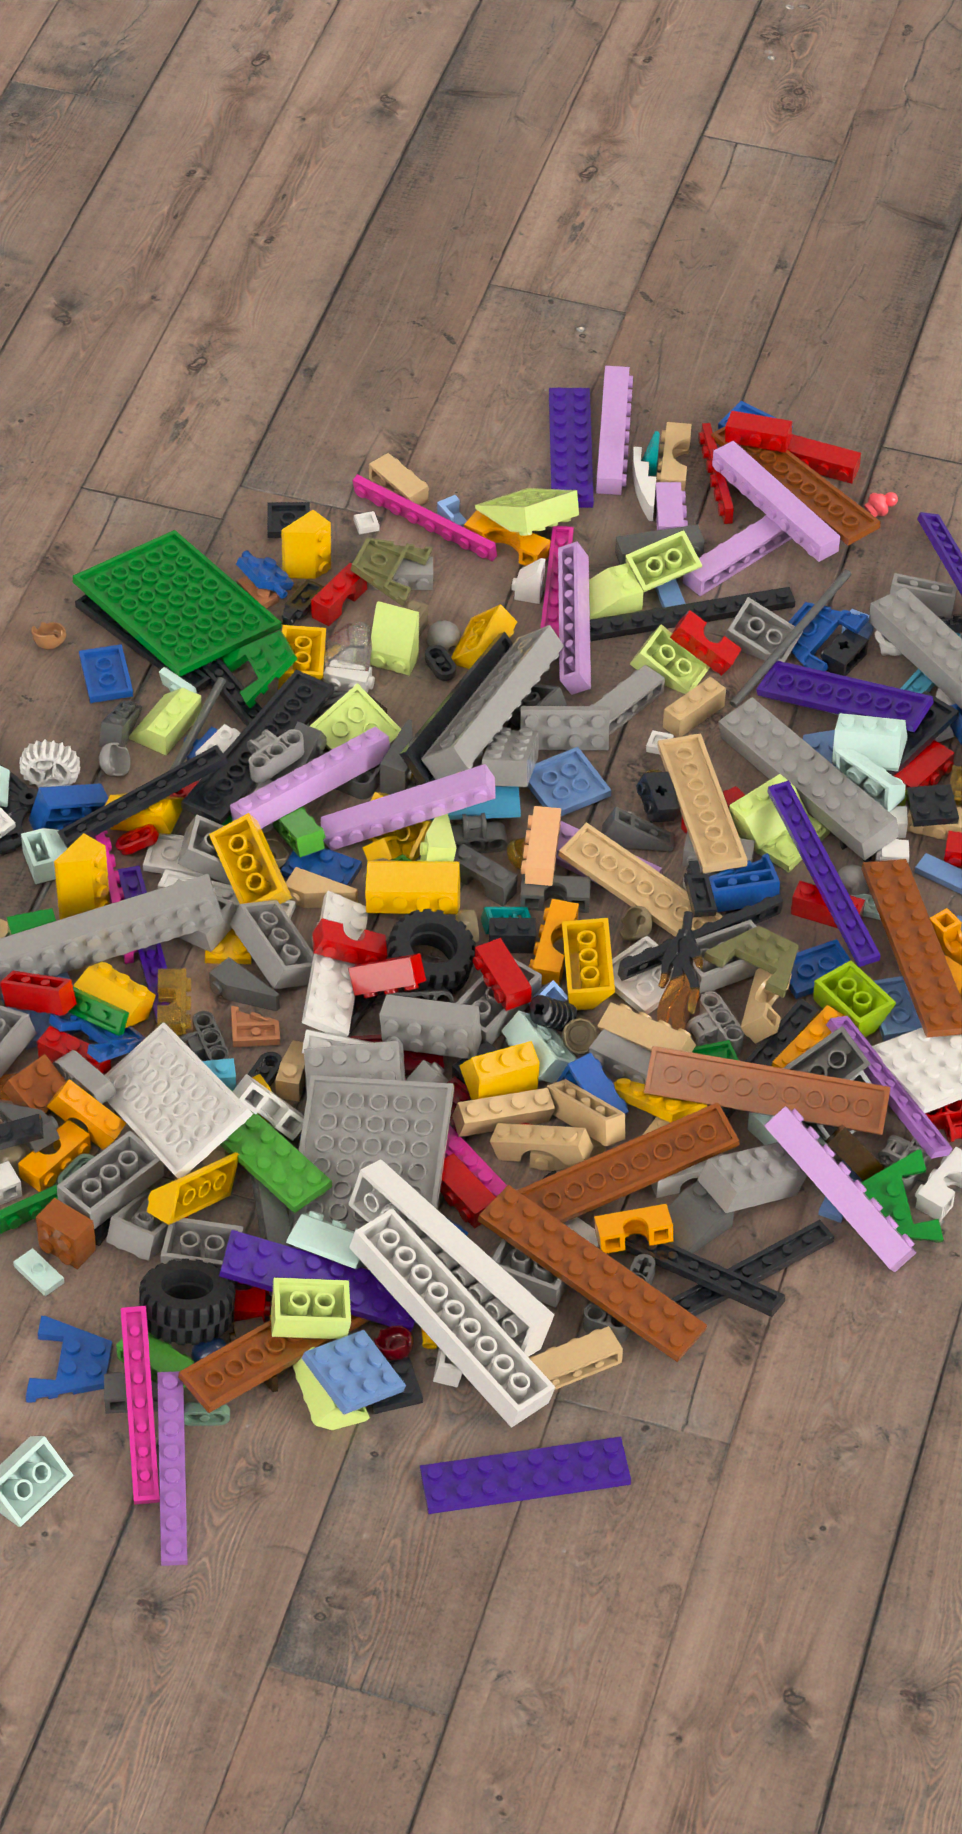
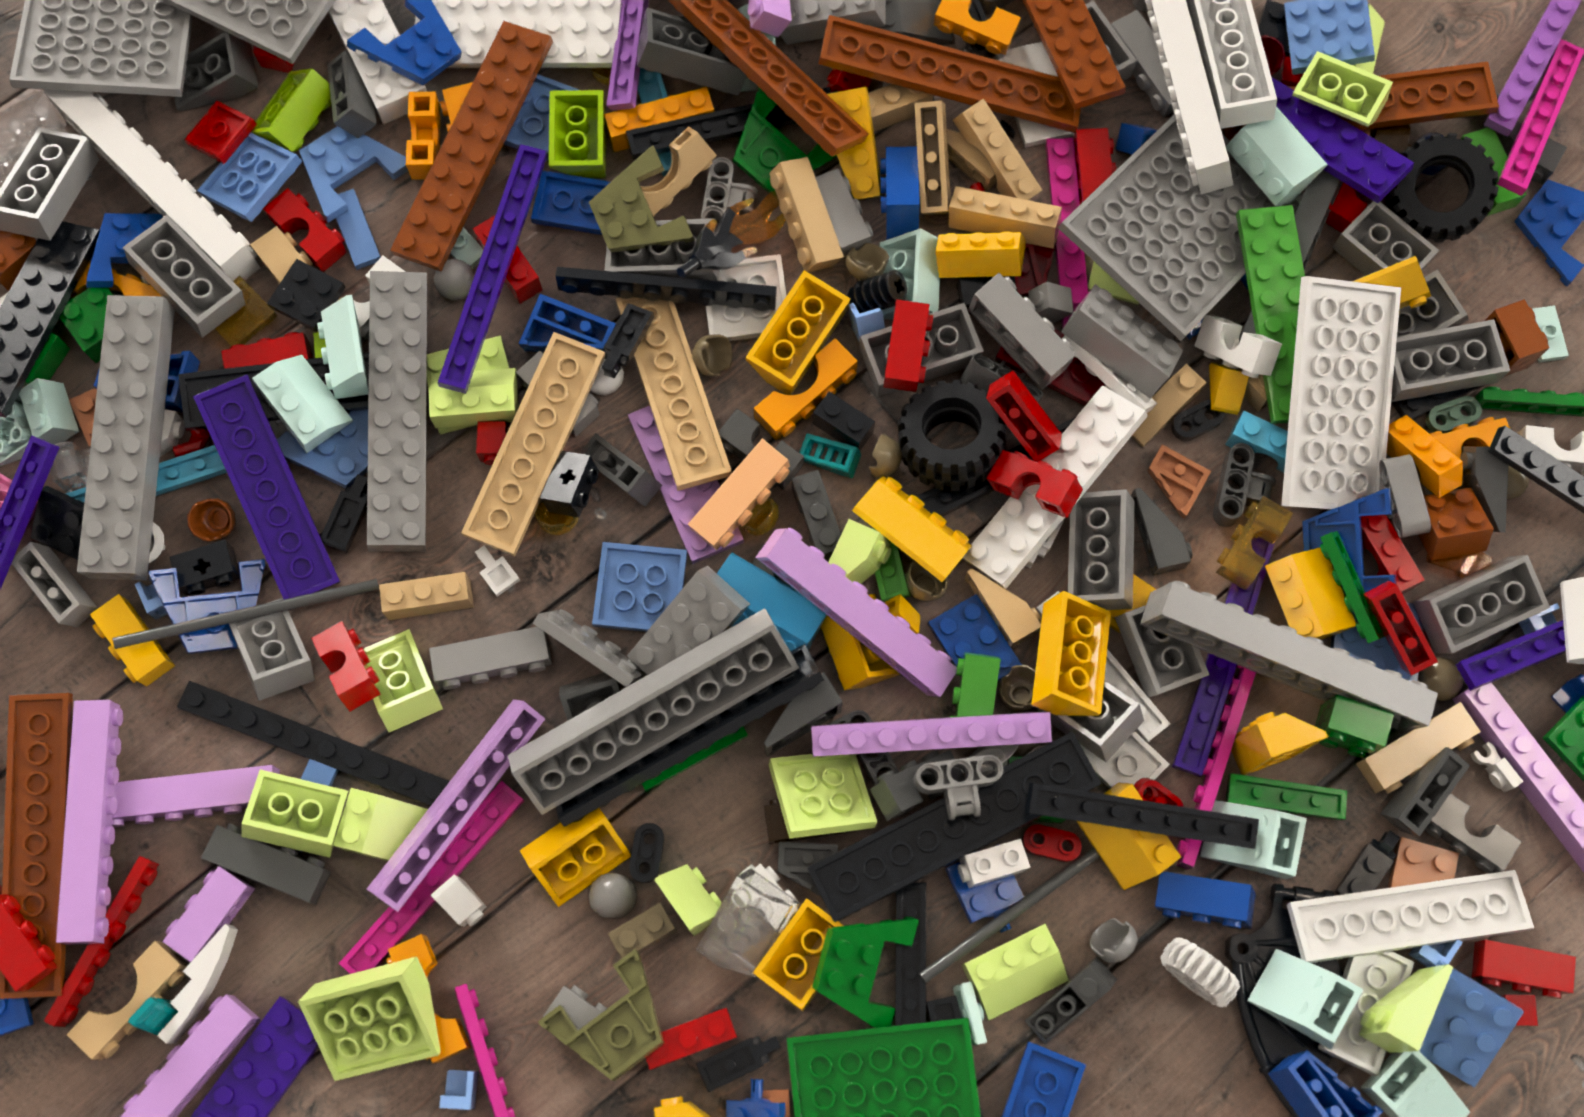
camera: 145 degrees left, 25 degrees up
(32, 896) = (1287, 796): none -> green plate
(786, 714) = (346, 516): none -> black hinge
(849, 596) = (144, 660): none -> yellow brick
(867, 670) = (211, 519): none -> dark orange hair

